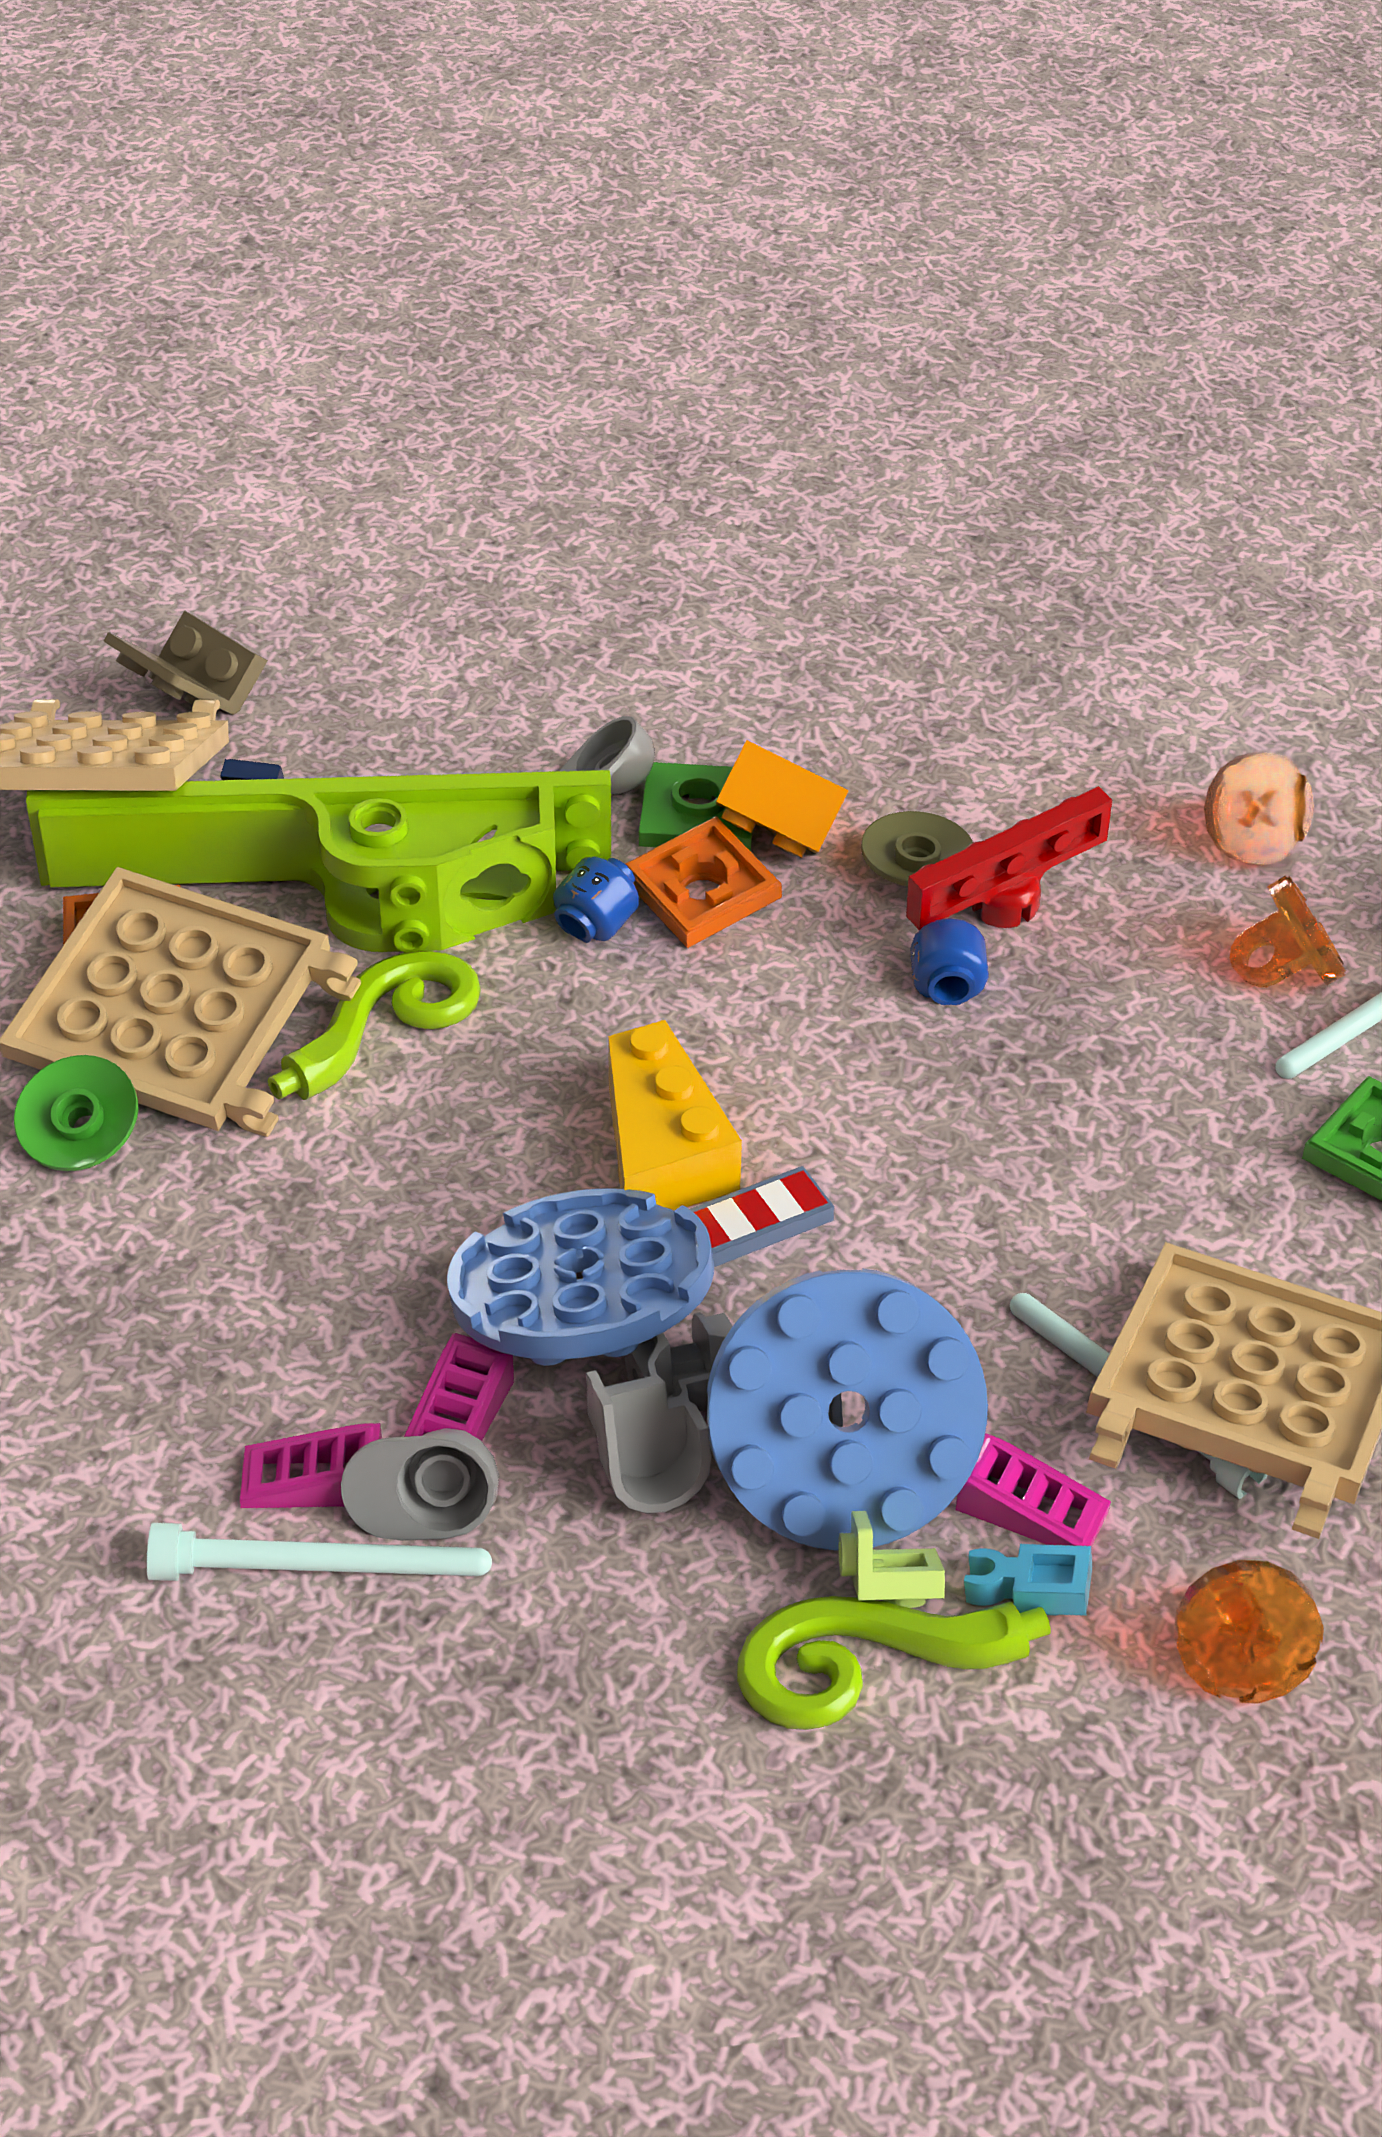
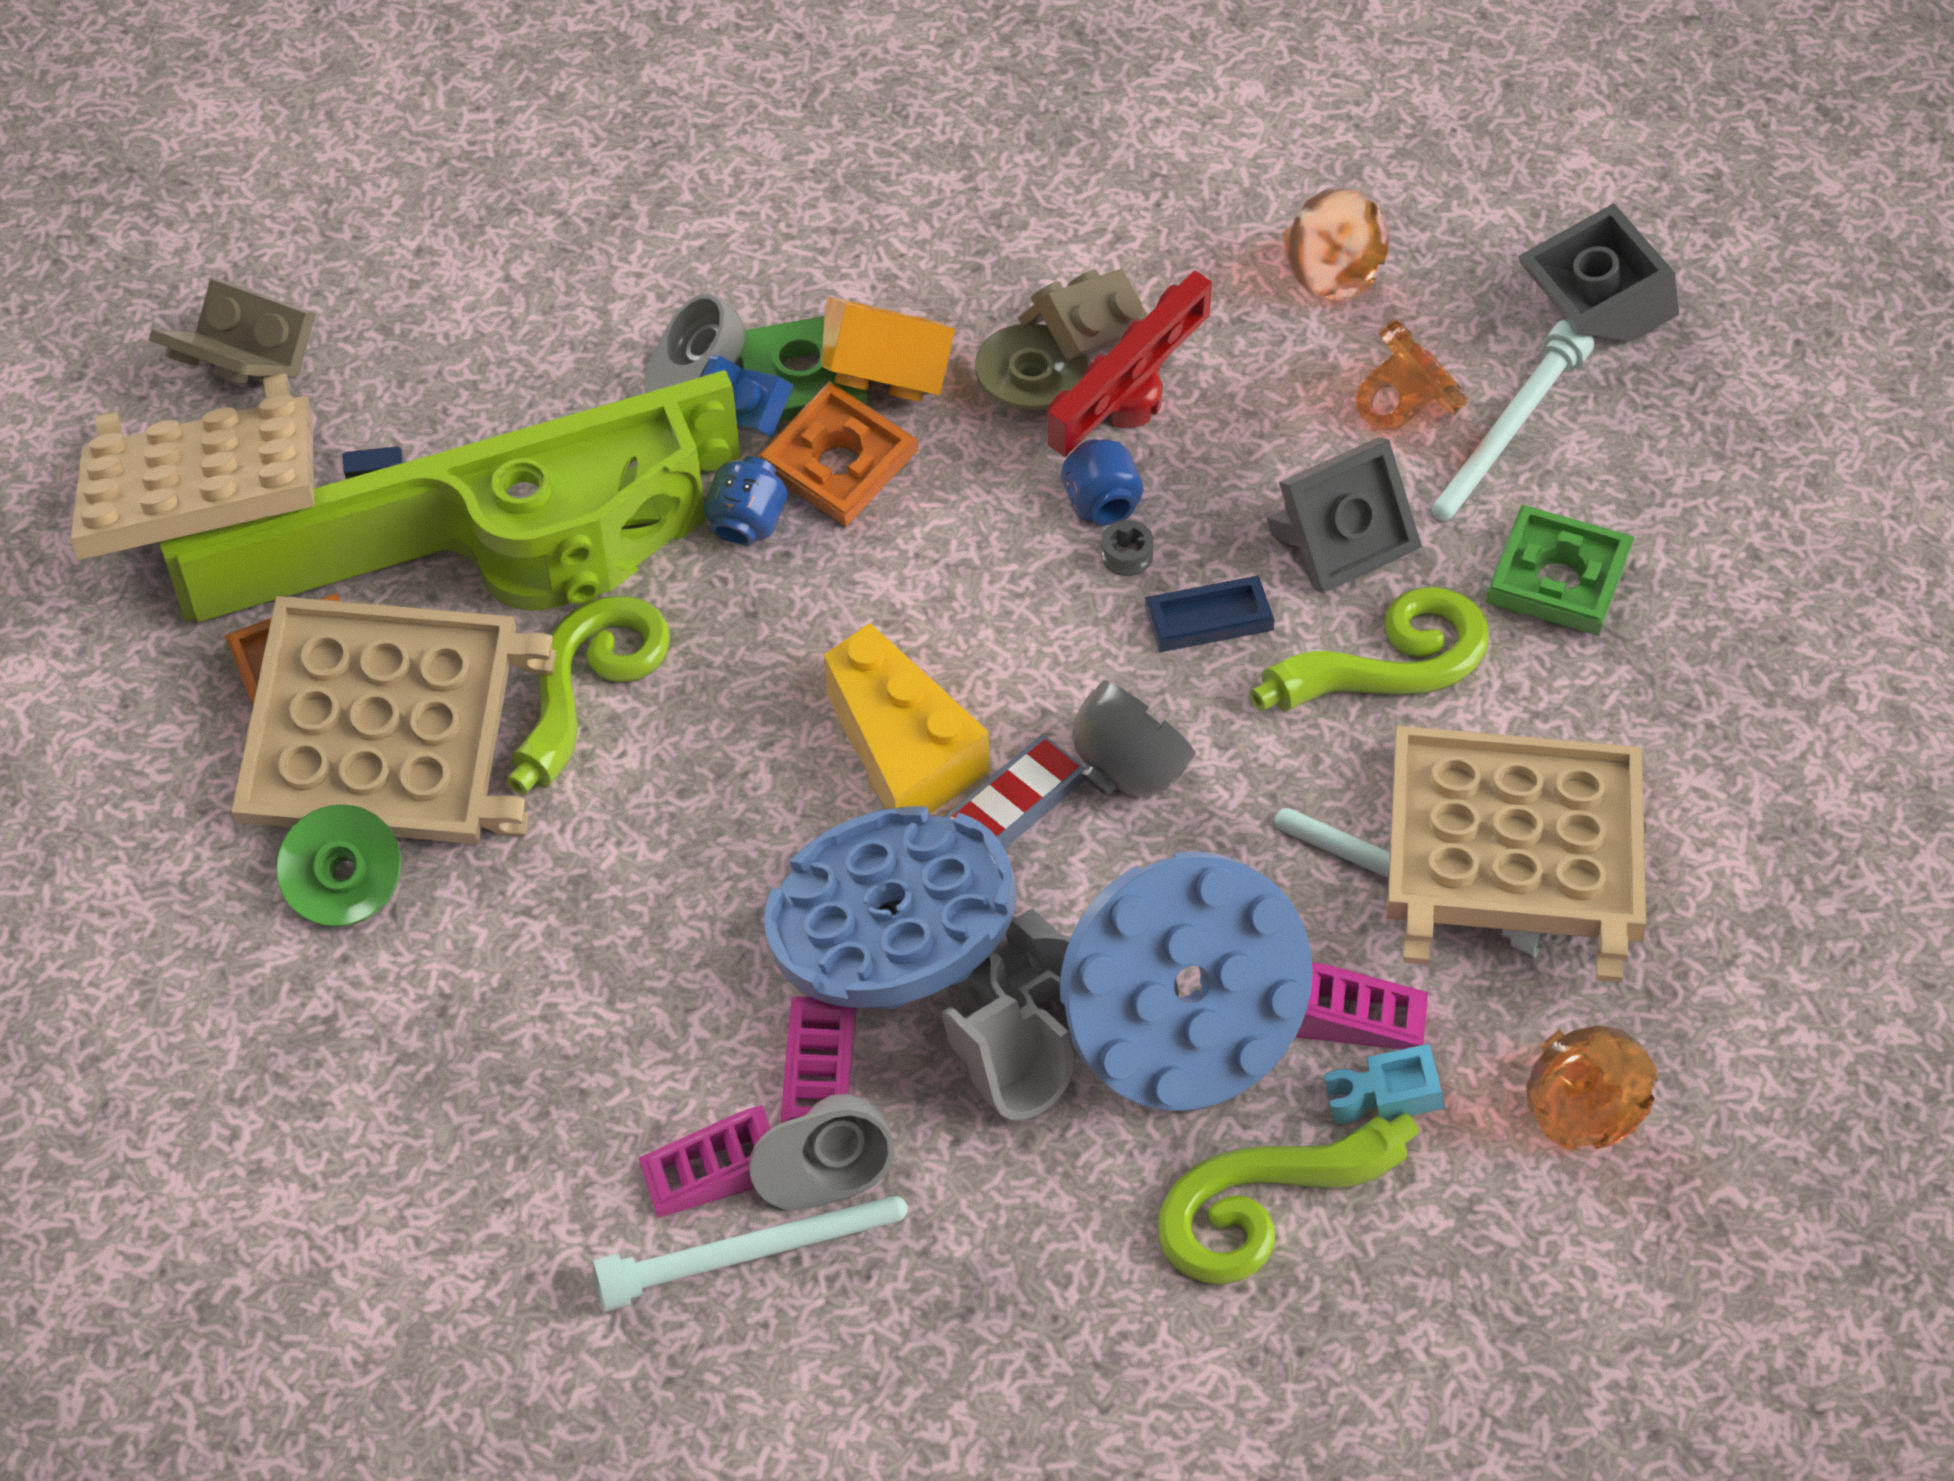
camera: 15 degrees left, 10 degrees up
(637, 812) = (757, 395): none -> blue bracket
(879, 1191) = (1127, 745): none -> dark grey cylinder
(888, 1575) = (1263, 1118): yellowish green bracket -> none
(951, 1037) = (1130, 561): none -> dark grey bush
(980, 808) = (1087, 312): none -> dark tan bracket
(1014, 1102) = (1209, 613): none -> dark blue tile
(1106, 1178) = (1323, 672): none -> lime plant
(1182, 1040) = (1347, 515): none -> dark grey bracket

